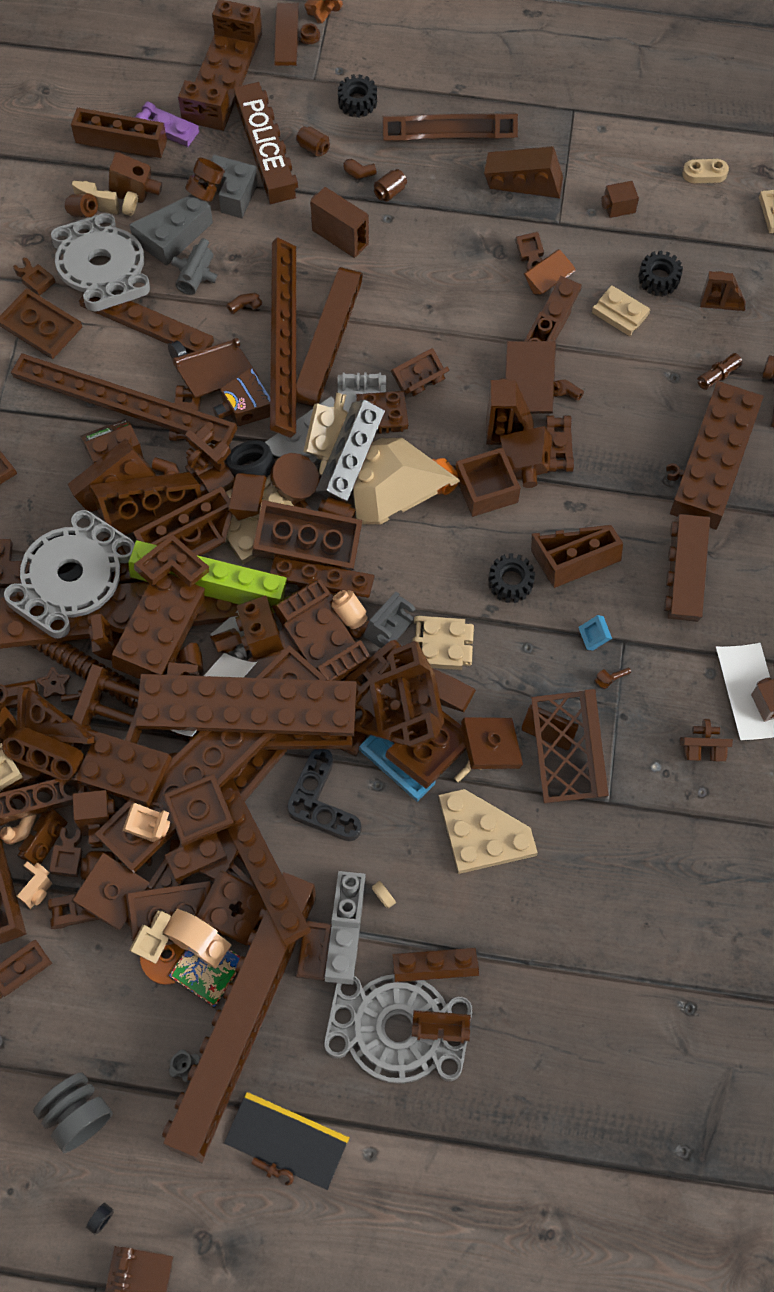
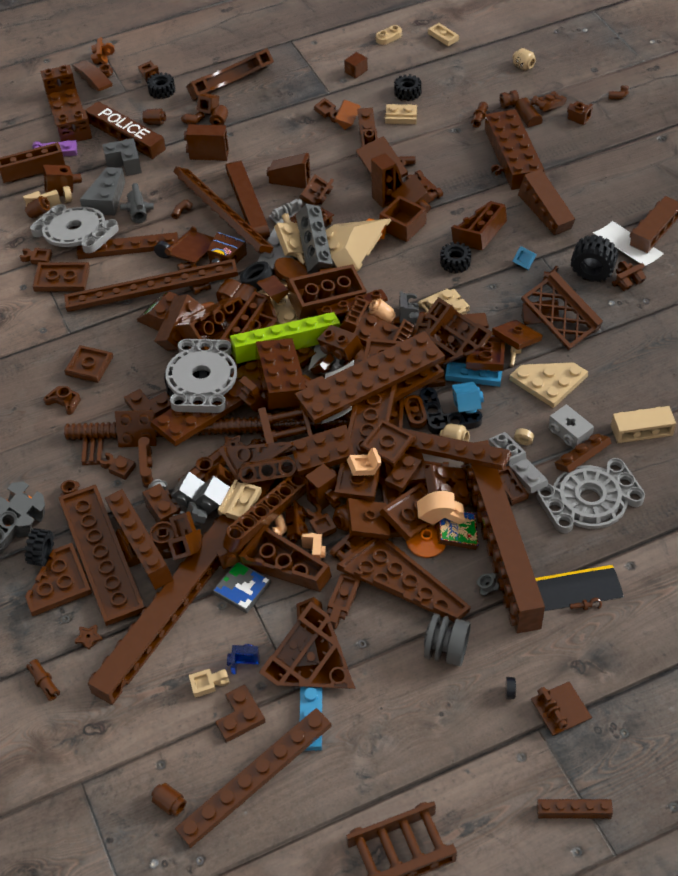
camera: 30 degrees left, 15 degrees down
(93, 980) = (393, 571): none -> reddish brown wing
(150, 941) = (416, 524): tan plate -> none
(174, 557) = (264, 327): reddish brown plate -> none
(199, 442) = (227, 279): reddish brown hips -> none
(208, 172) = (109, 150): reddish brown wheel -> none
(286, 774) = (415, 415): none -> reddish brown plate
(302, 840) = (456, 432): none -> tan head
(354, 797) = (467, 397): none -> dark azure brick
(358, 63) = (148, 69): none -> reddish brown bracket
(388, 157) = (207, 102): none -> reddish brown brick
(408, 325) = (290, 171): none -> reddish brown slope
(441, 1025) = (616, 474): reddish brown hinge -> none
(450, 903) = (570, 426): none -> light grey brick
(525, 171) = (292, 75): reddish brown wedge -> none
(540, 973) = (643, 424): none -> tan brick
(672, 695) = (594, 258): none -> black tyre
(722, 292) = (449, 78): reddish brown wing -> none

